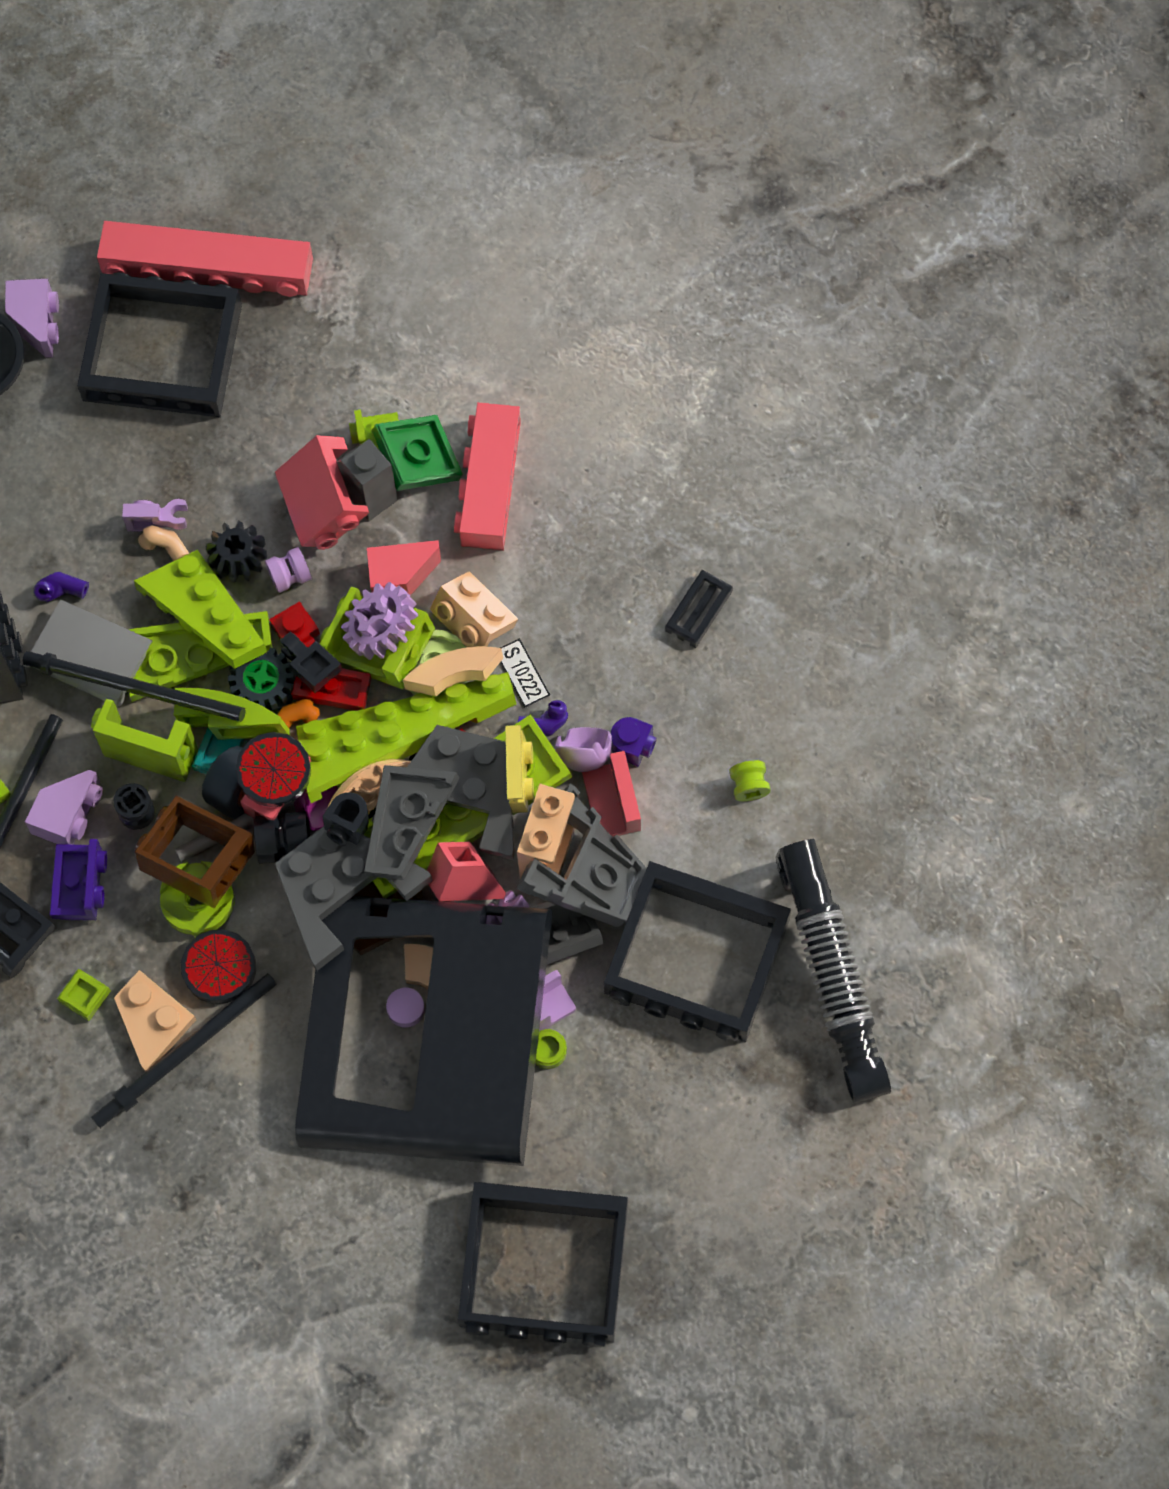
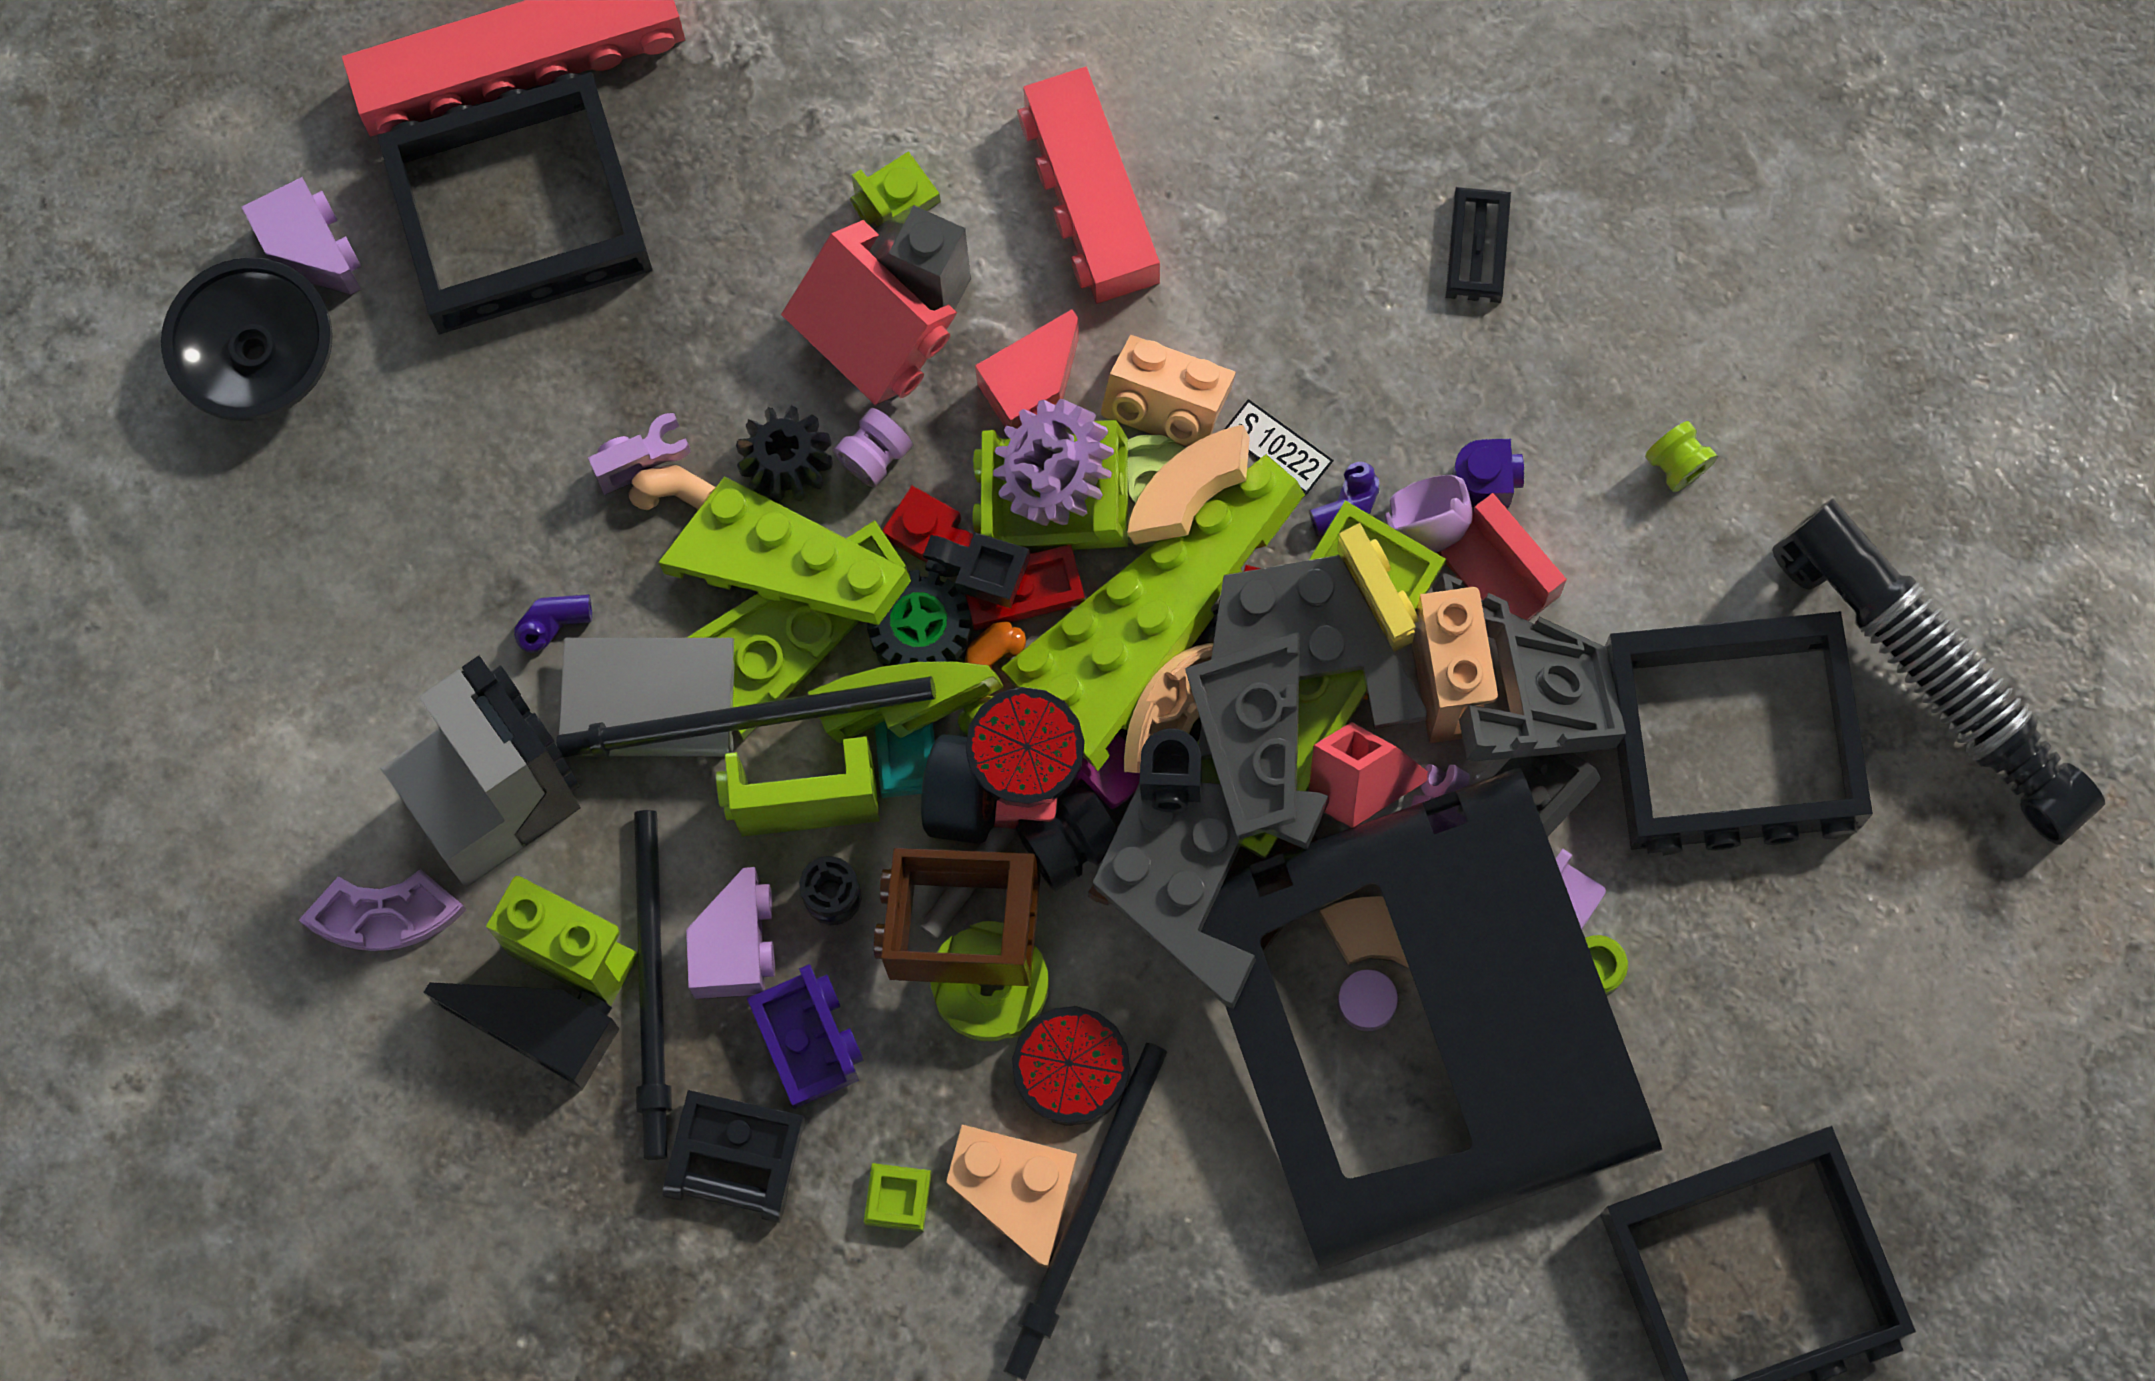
camera: 25 degrees left, 5 degrees up
(417, 452) = (974, 191): green tile -> none

